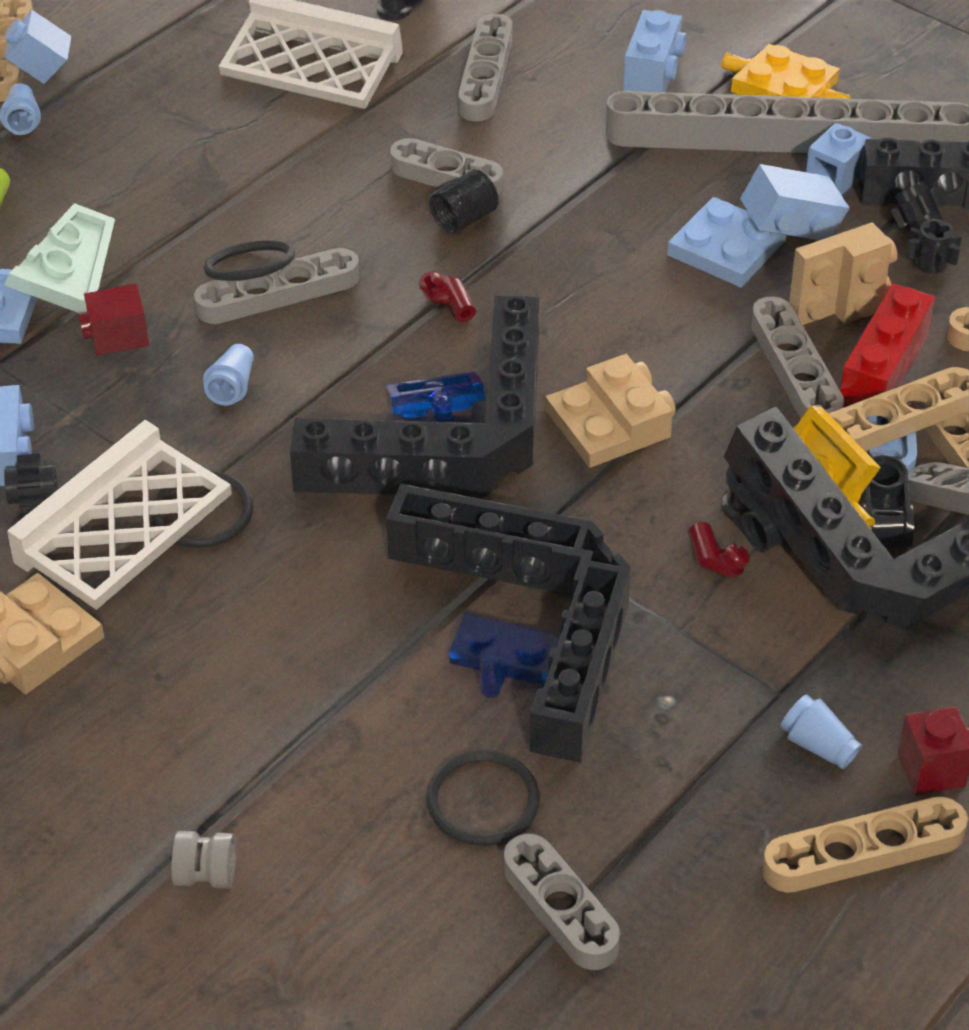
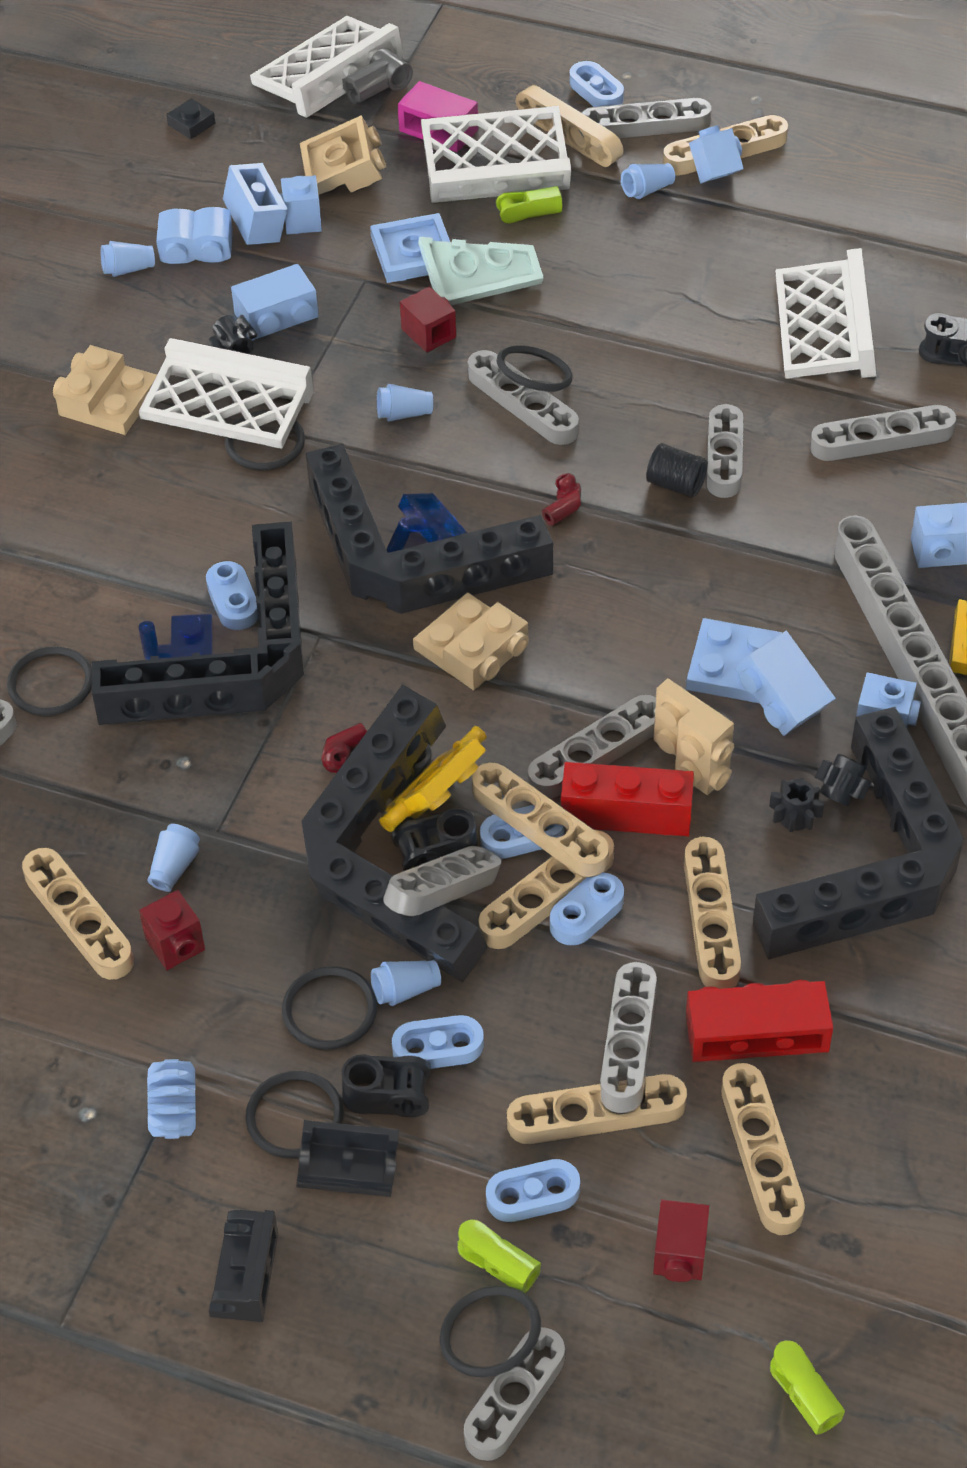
camera: 70 degrees right, 5 degrees up
(437, 593) = (229, 588): none -> light blue plate

